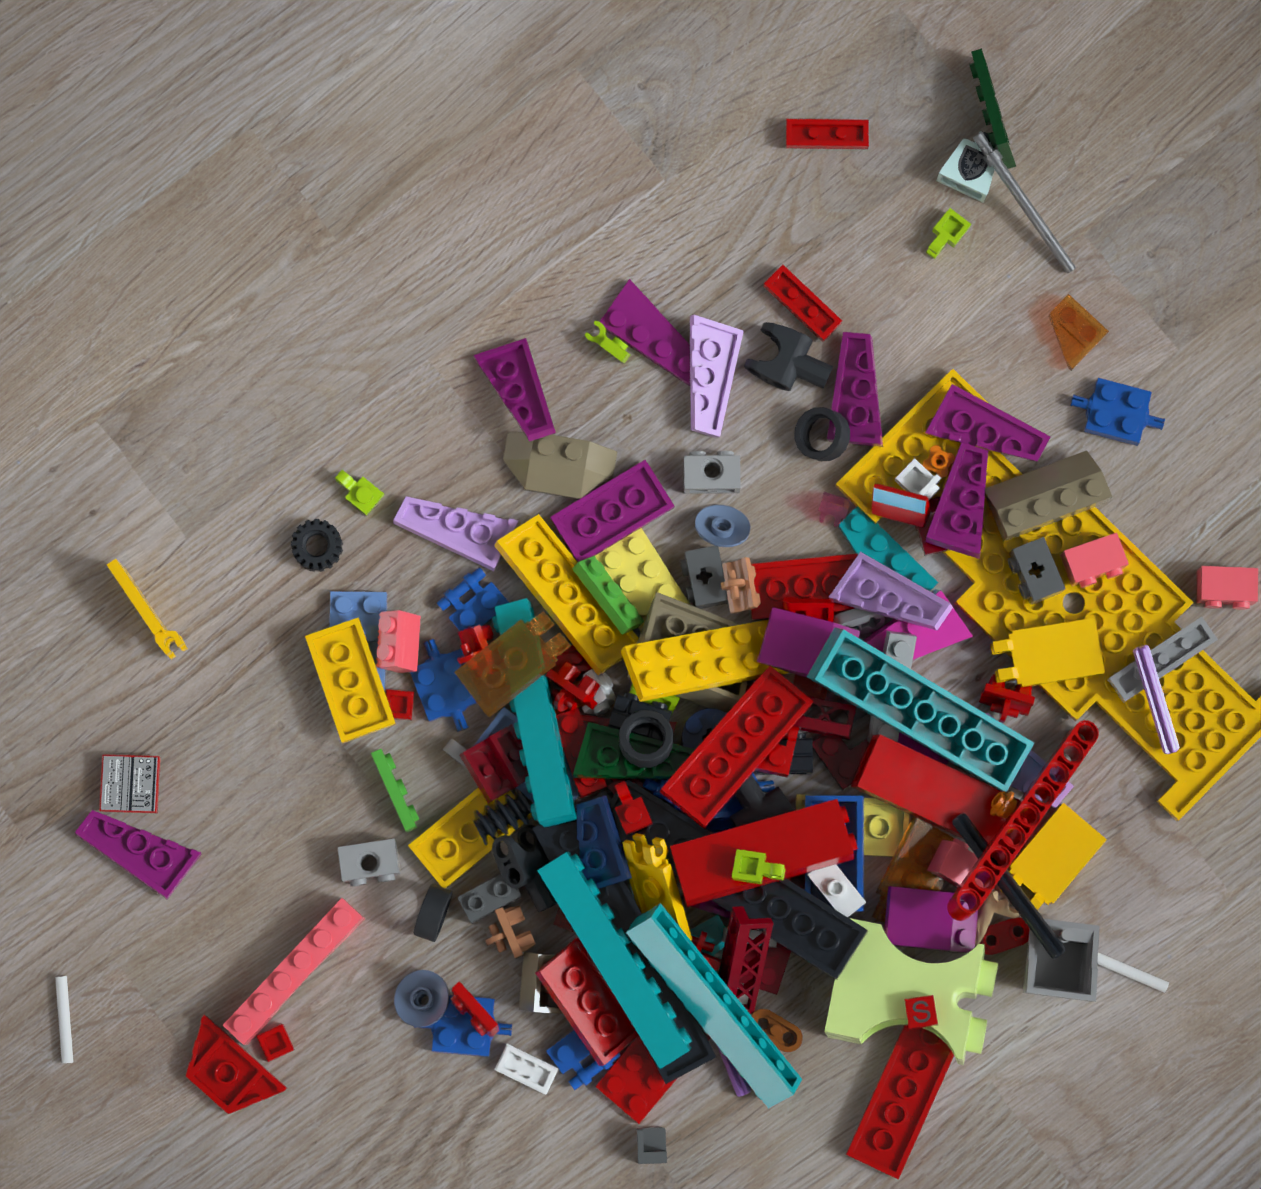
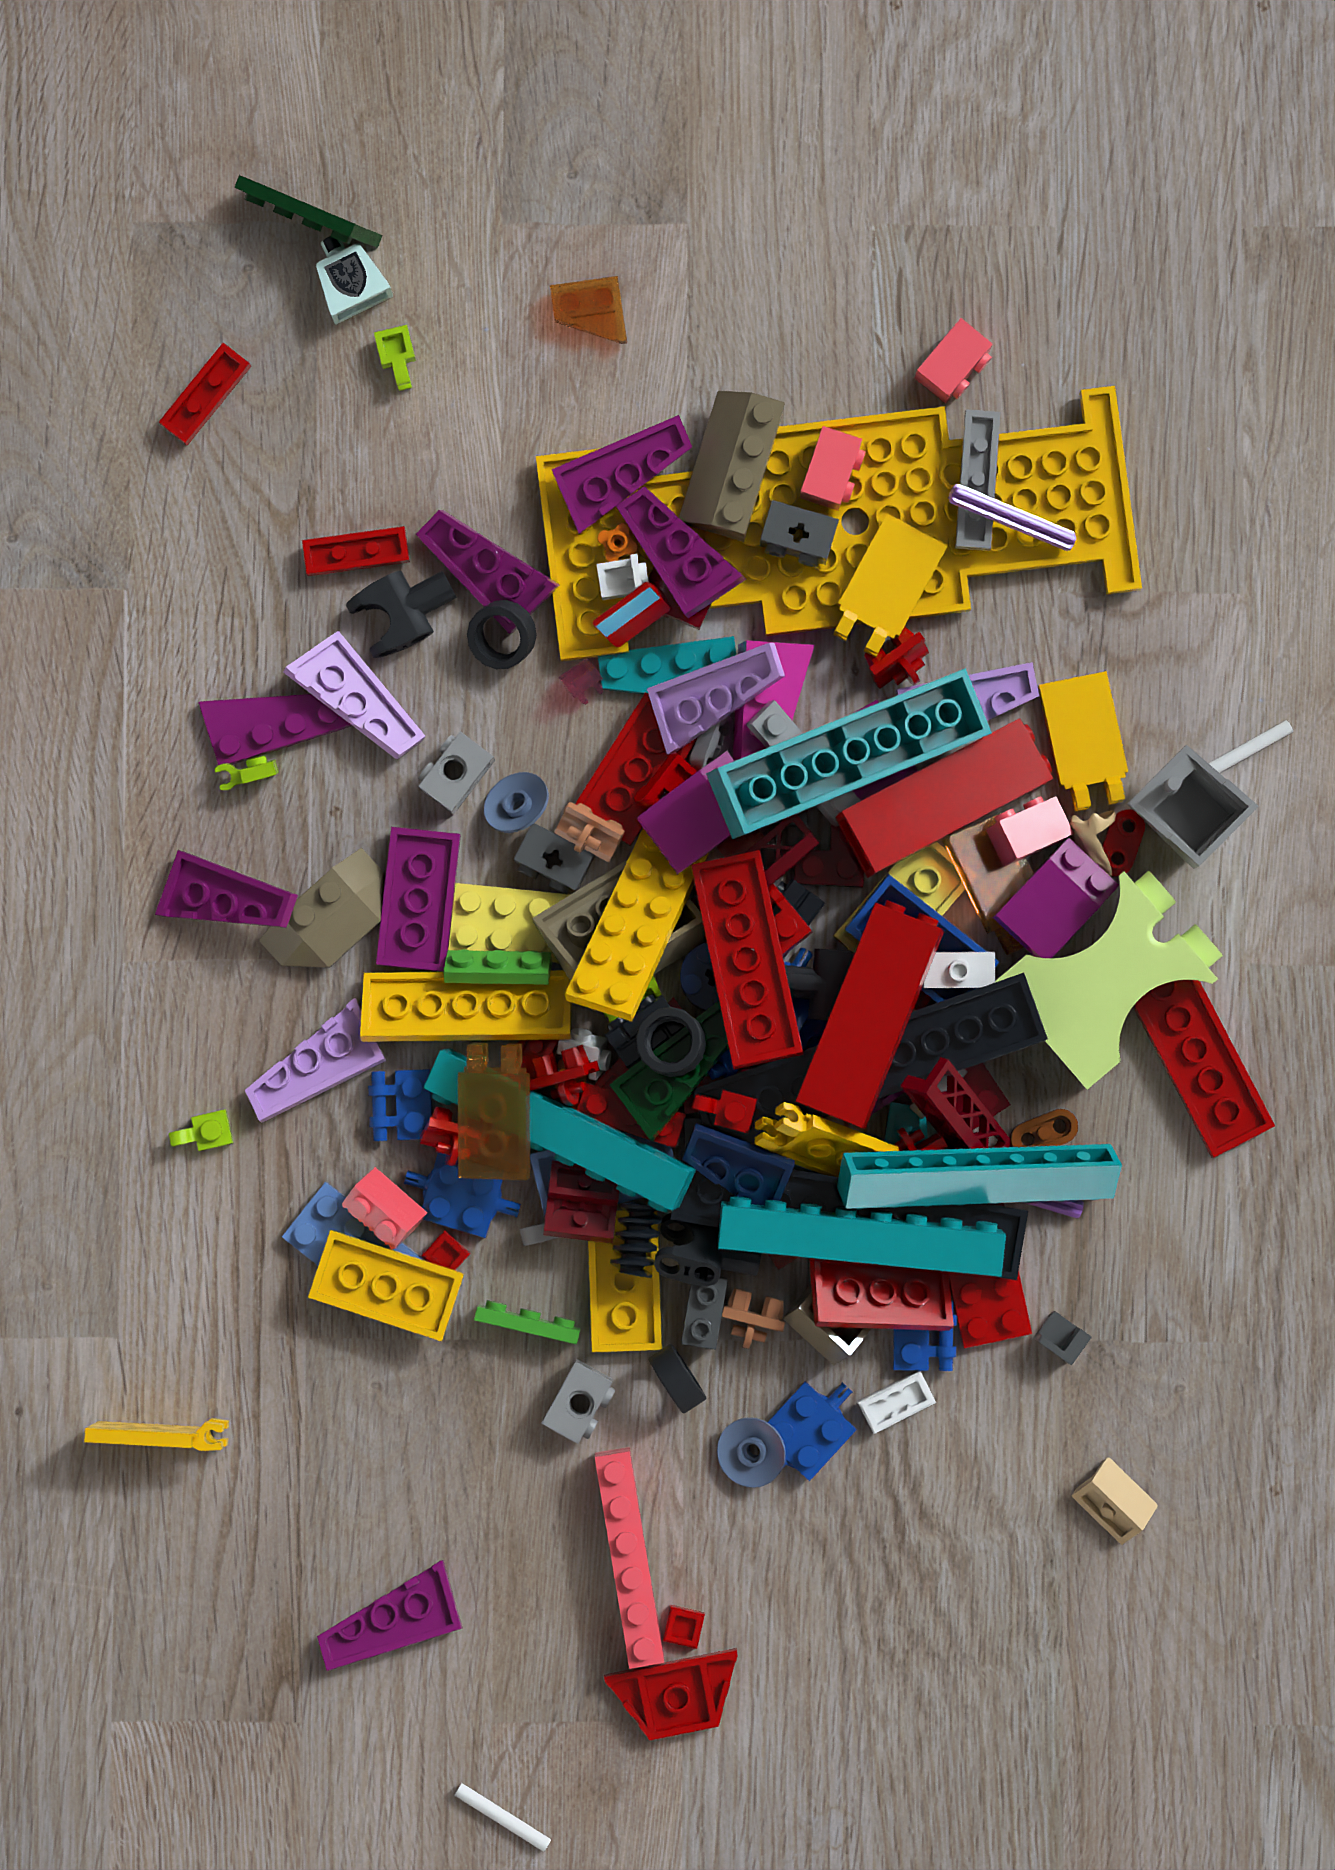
camera: 50 degrees left, 5 degrees up
(130, 784) = (320, 1579): light grey tile -> none
(308, 530) = (203, 1215): black tyre -> none
(465, 1002) = (820, 1412): red tile -> none
(752, 867) = (879, 1038): lime plate -> none
(921, 1012) = (1142, 982): red tile -> none
(993, 158) = (360, 251): flat silver bar -> none
(1003, 804) = (1001, 744): orange plate -> none
(1012, 890) = (1083, 801): black axle -> none
(1017, 829) = (1031, 751): red beam -> none
(1117, 411) = (702, 330): blue plate -> none

